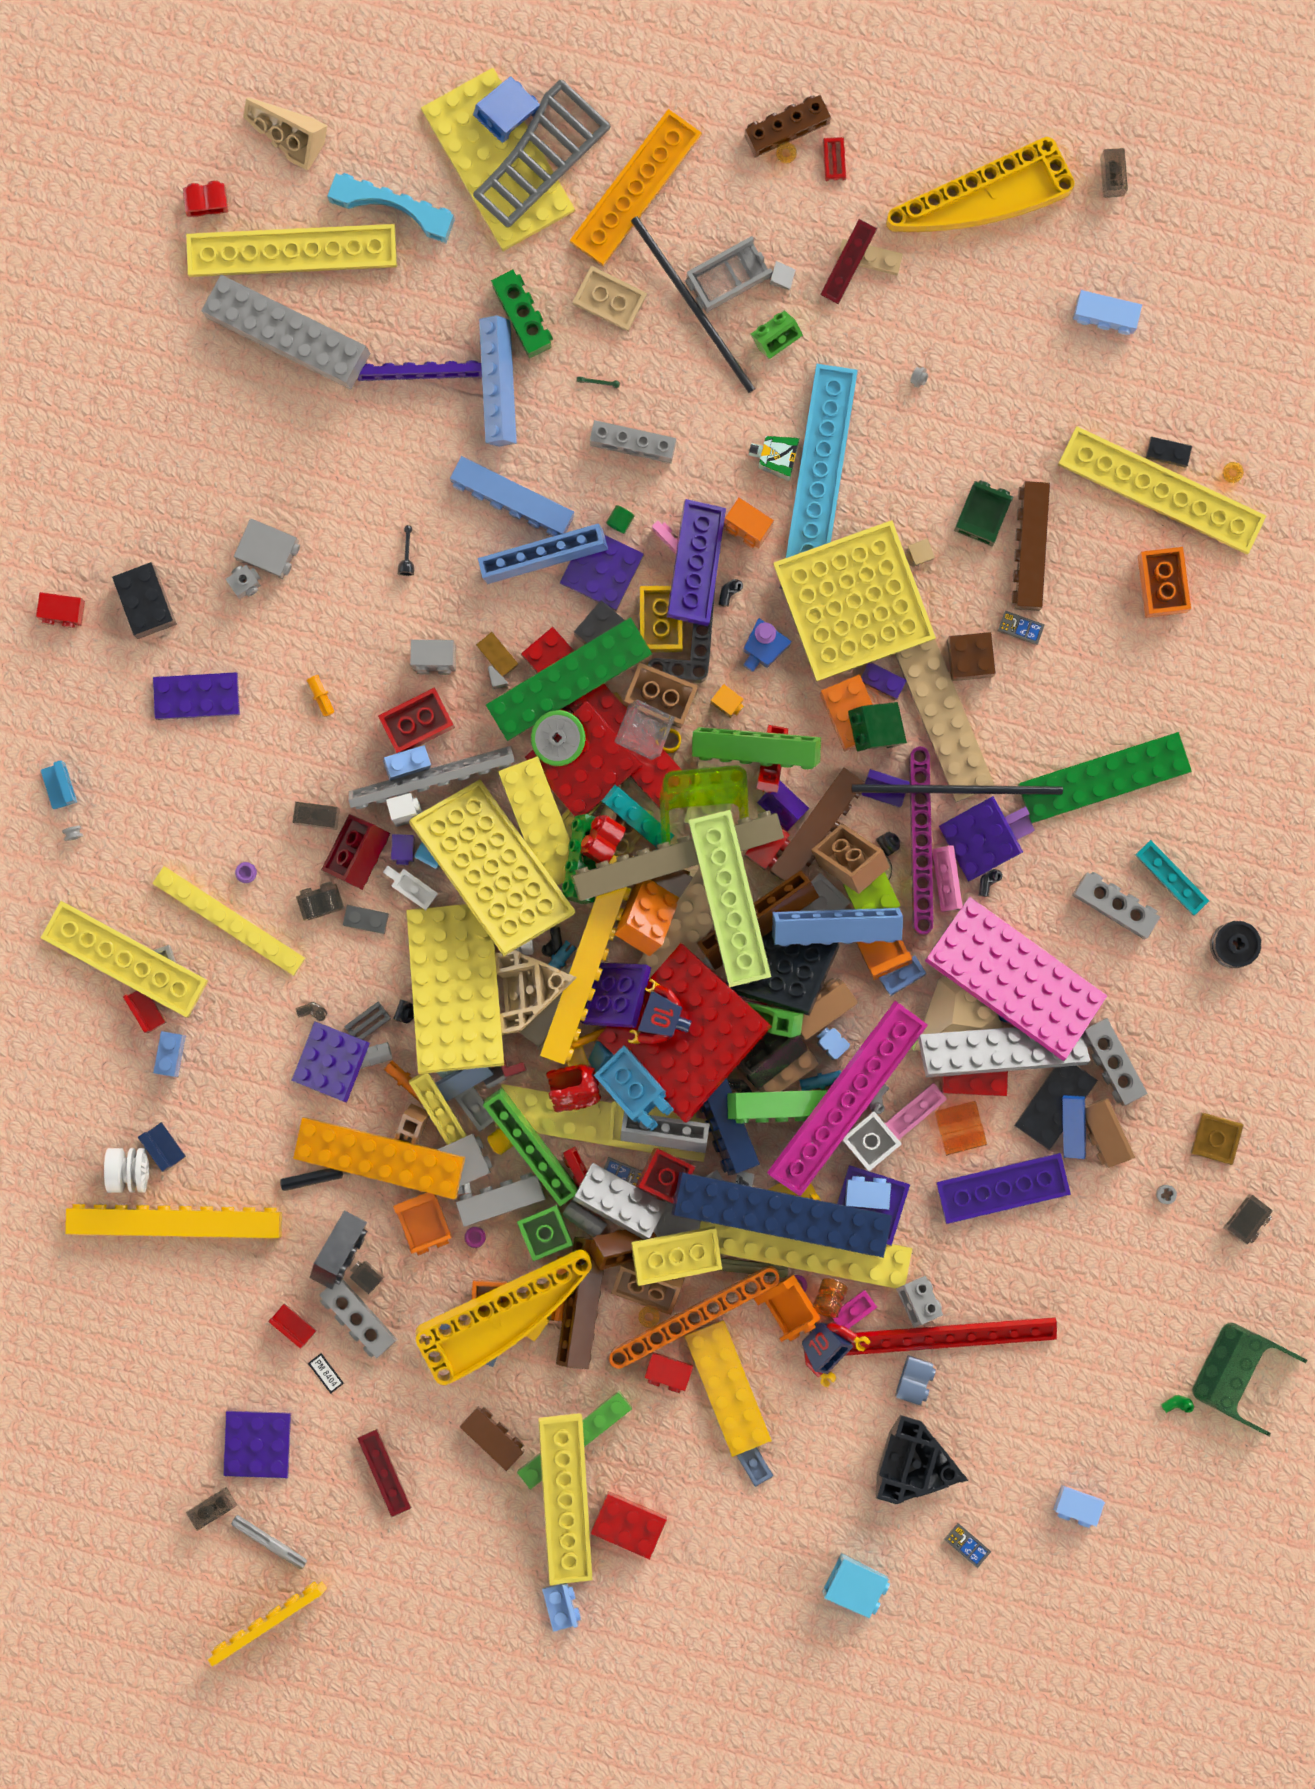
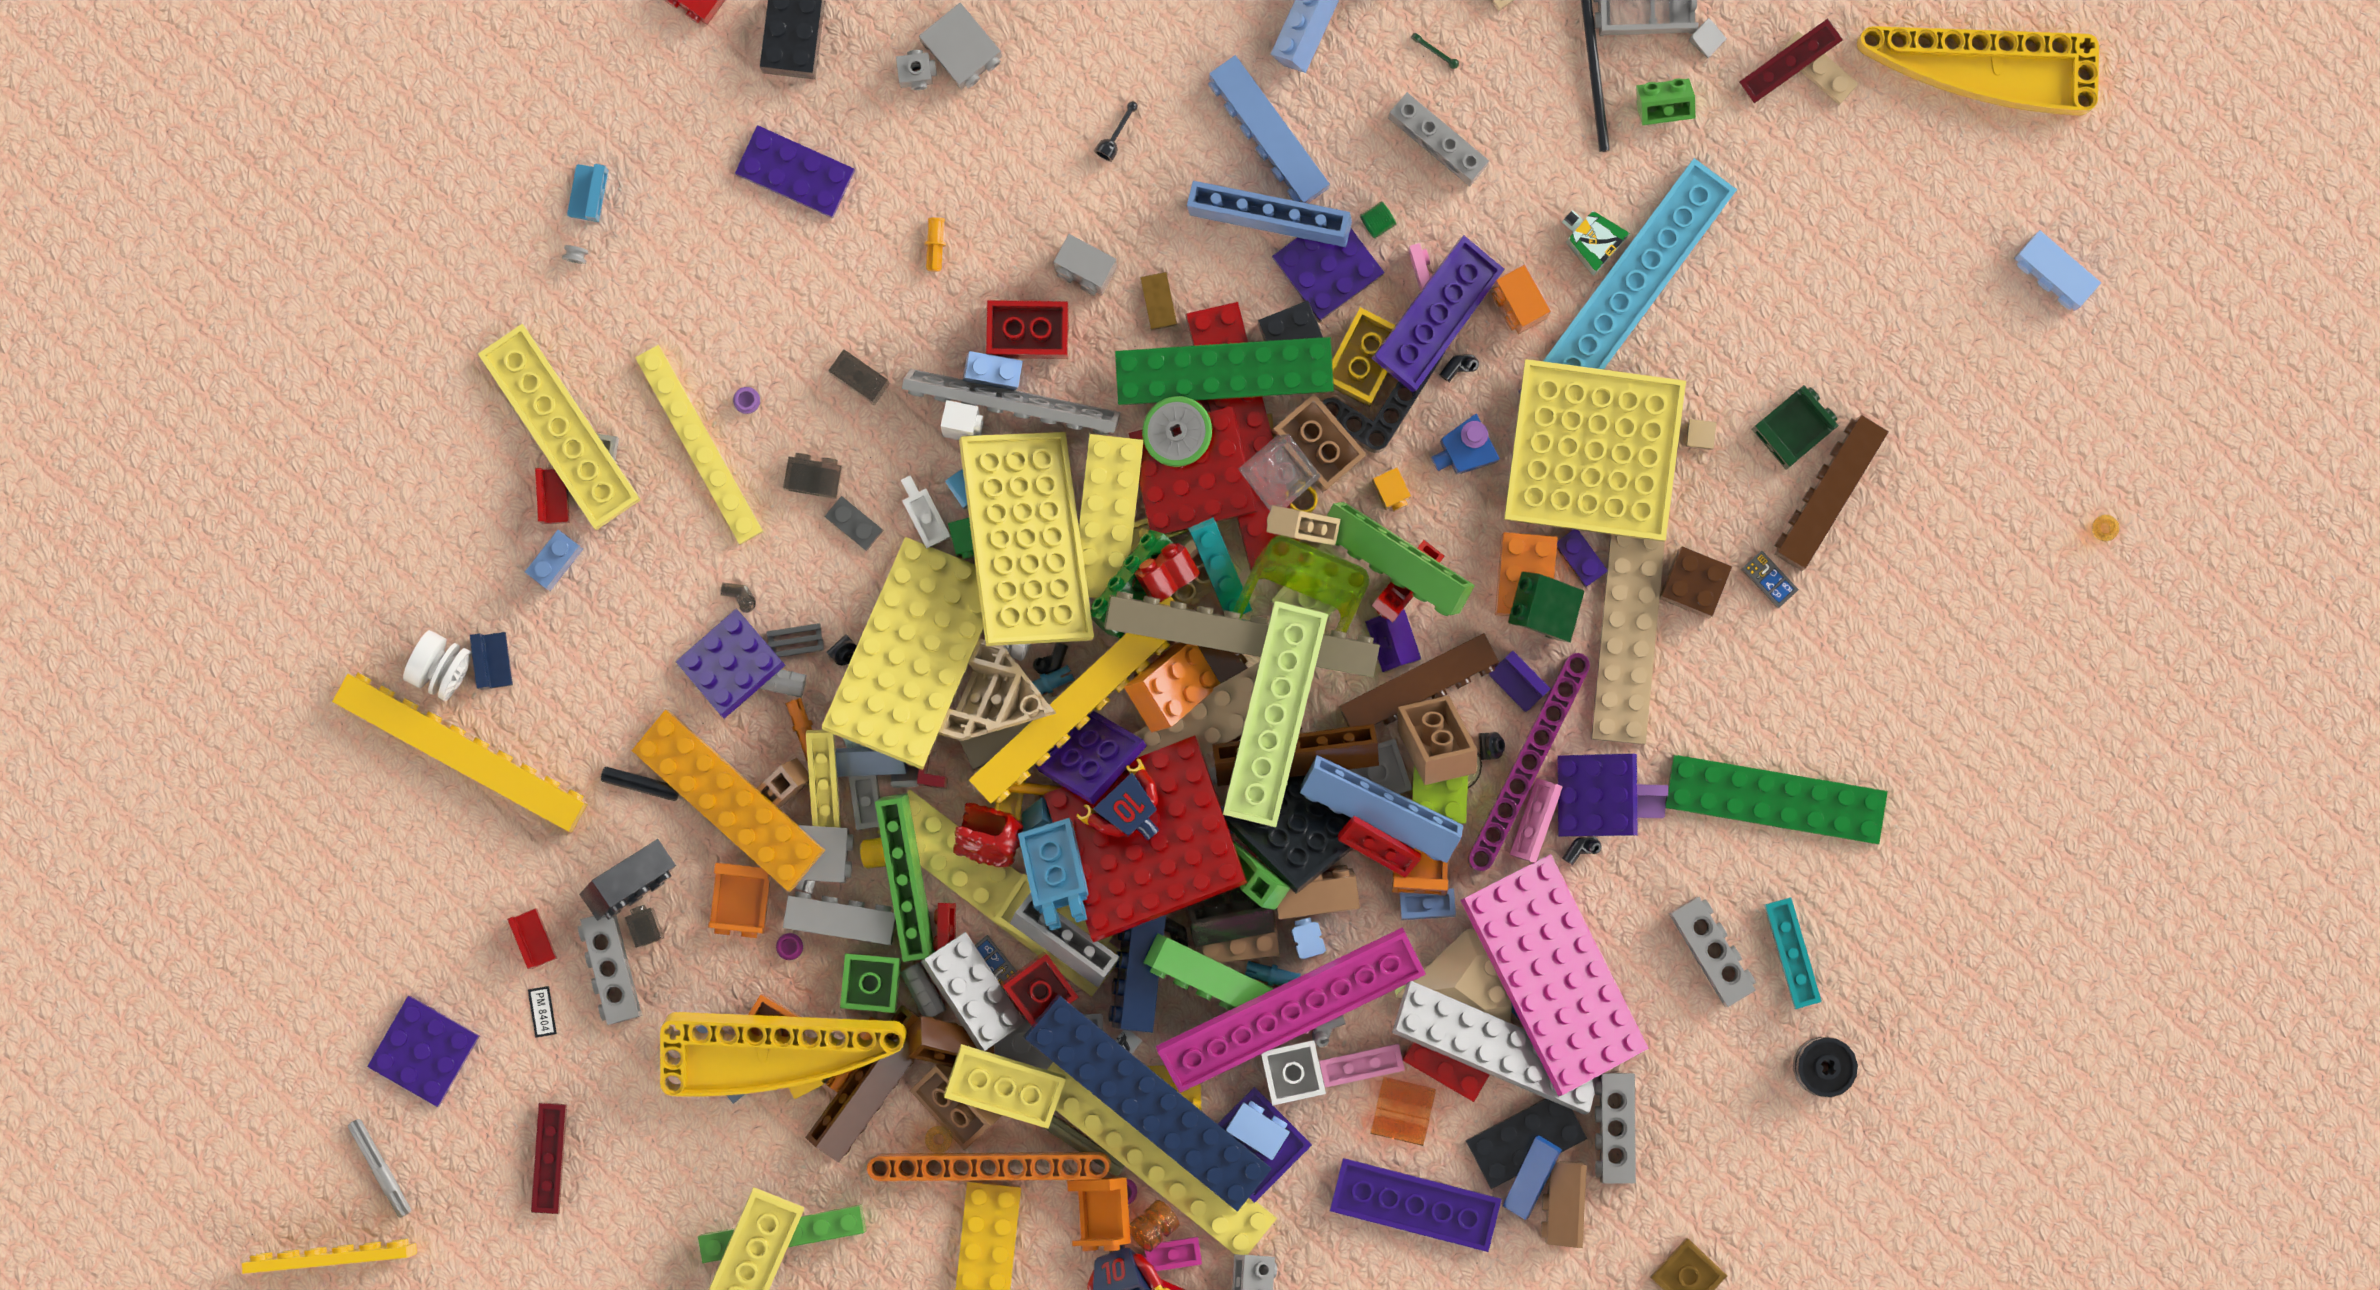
camera: 25 degrees right, 0 degrees up
(211, 1508) = (334, 1096): clear smoke brick -> none
(356, 851) = (882, 441): dark red slope -> none
(403, 849) = (937, 465): dark purple brick -> none
(447, 890) = (962, 538): none -> green brick
(493, 1437) = (691, 1183): reddish brown brick -> none
(496, 679) = (1143, 329): light grey slope -> none
(668, 1372) = (927, 1213): red brick -> none
(680, 757) = (1303, 525): none -> tan brick
(765, 854) = (1343, 685): red brick -> none
(849, 952) = (1379, 846): none -> red plate
(919, 376) = (1803, 233): light grey plate -> none
(957, 789) = (1599, 725): black piece -> none
(1113, 172) = (2148, 115): clear smoke brick -> none
(1162, 490) = (2013, 506): light yellow plate -> none
(1164, 582) = (1960, 612): orange brick -> none
(1168, 452) = (2044, 466): black plate -> none

